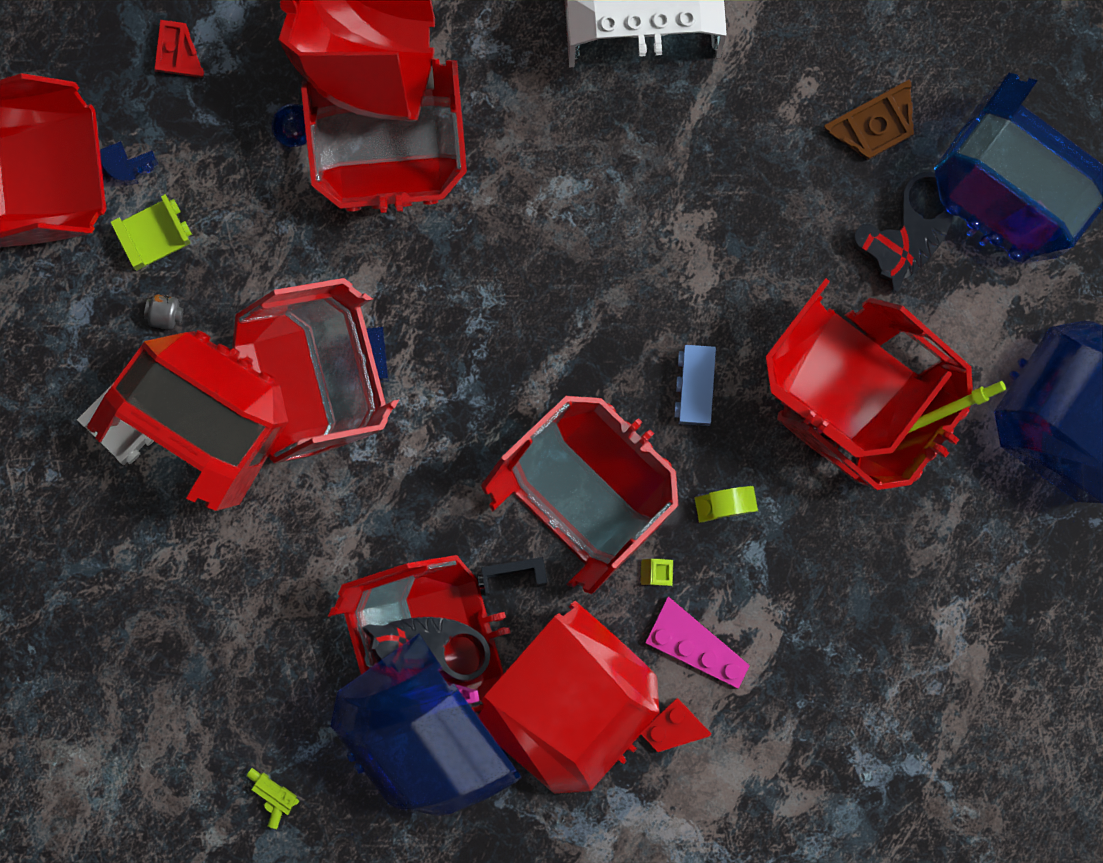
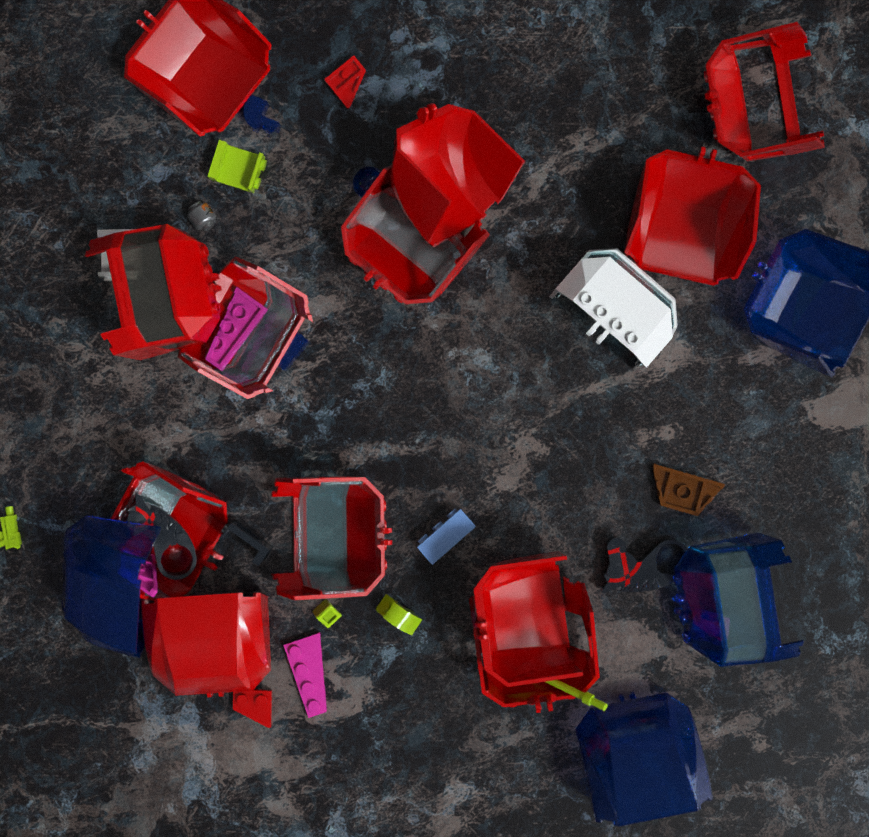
camera: 45 degrees right, 5 degrees up
(300, 381) = (240, 320): none -> dark pink wing

